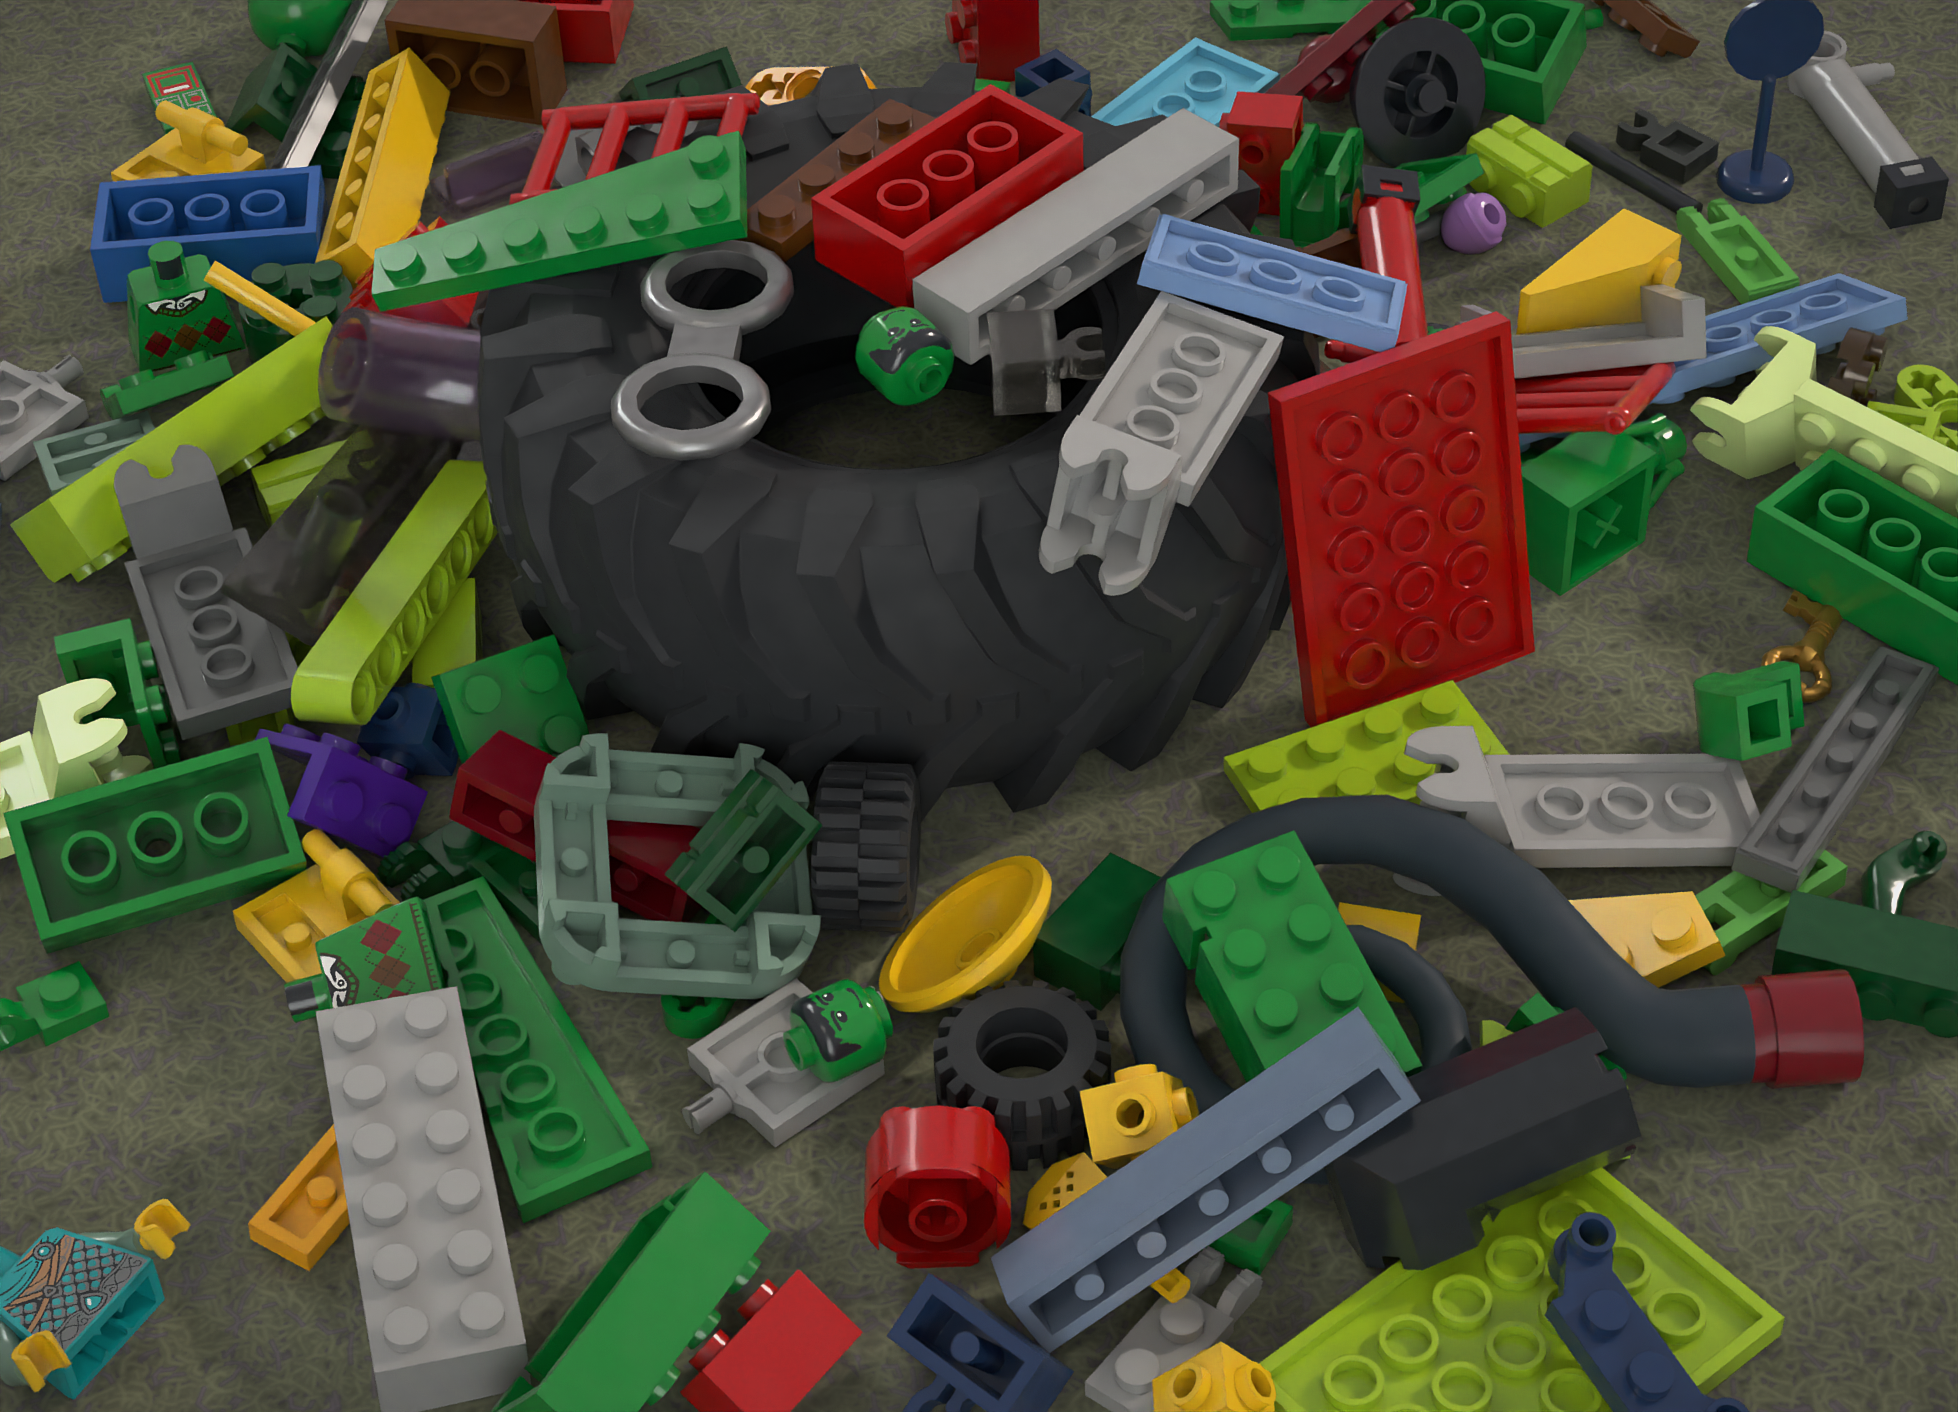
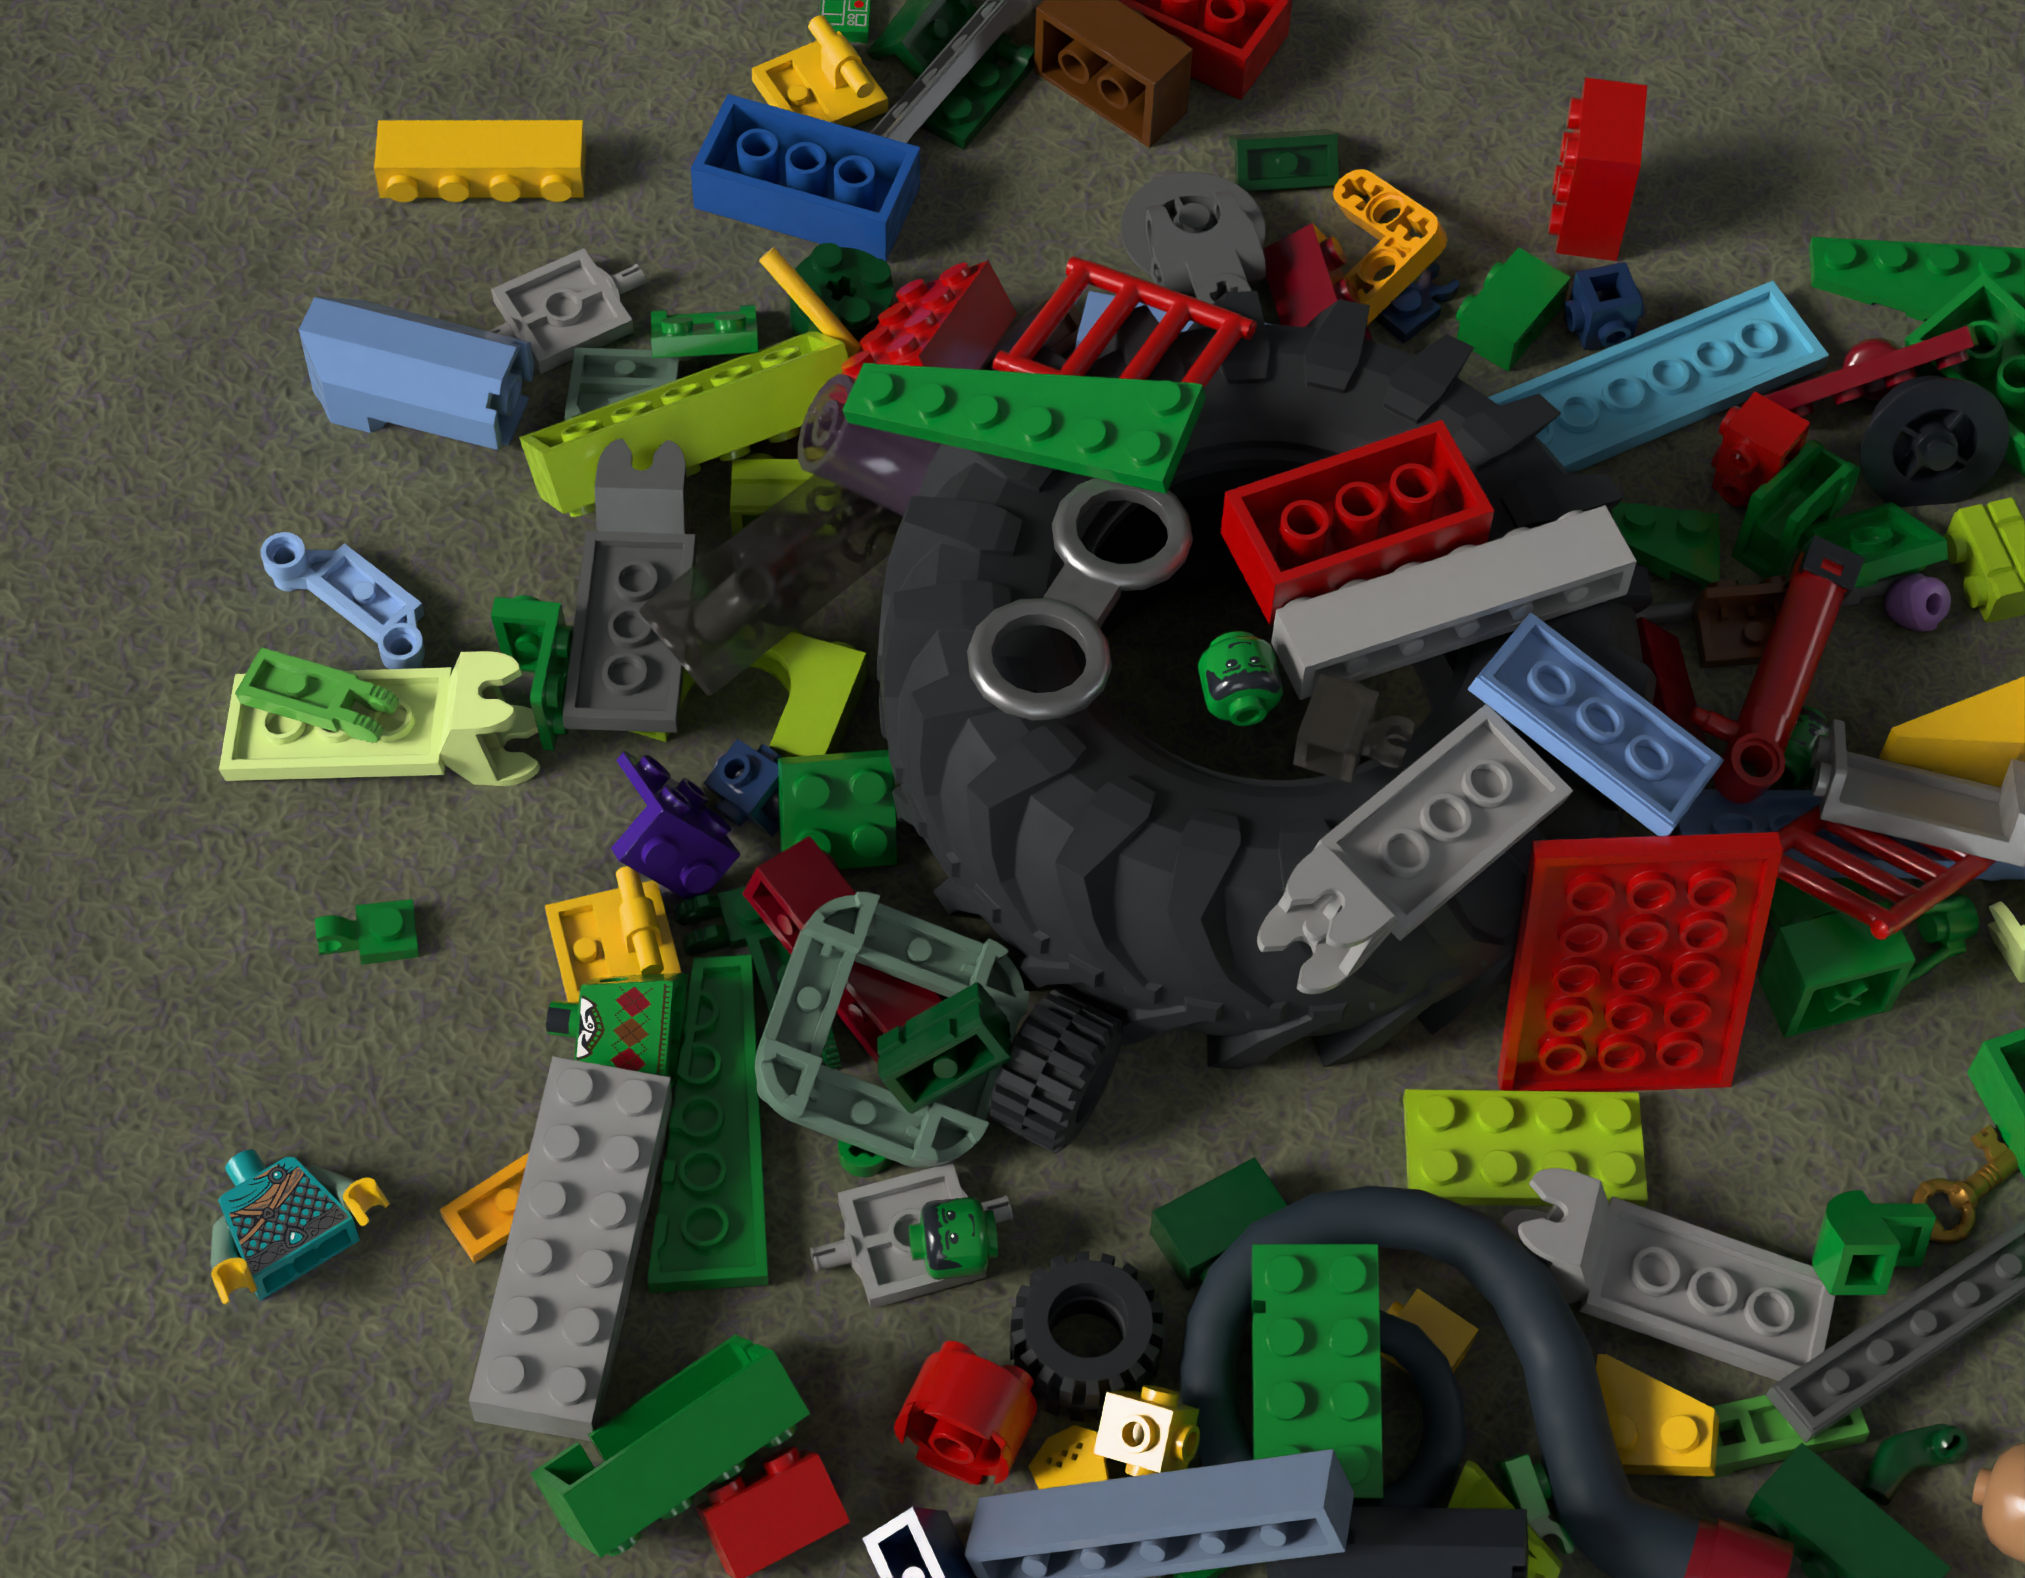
camera: 20 degrees right, 15 degrees up
(88, 848) = (449, 829): green brick -> none
(176, 310) = (731, 256): green torso -> none
(385, 163) = (978, 164): yellow brick -> none
(397, 600) = (777, 670): lime beam -> none
(486, 176) = (1074, 198): panel -> none
(784, 215) = (1283, 442): reddish brown plate -> none
(968, 937) = (1099, 1189): yellow dish -> none

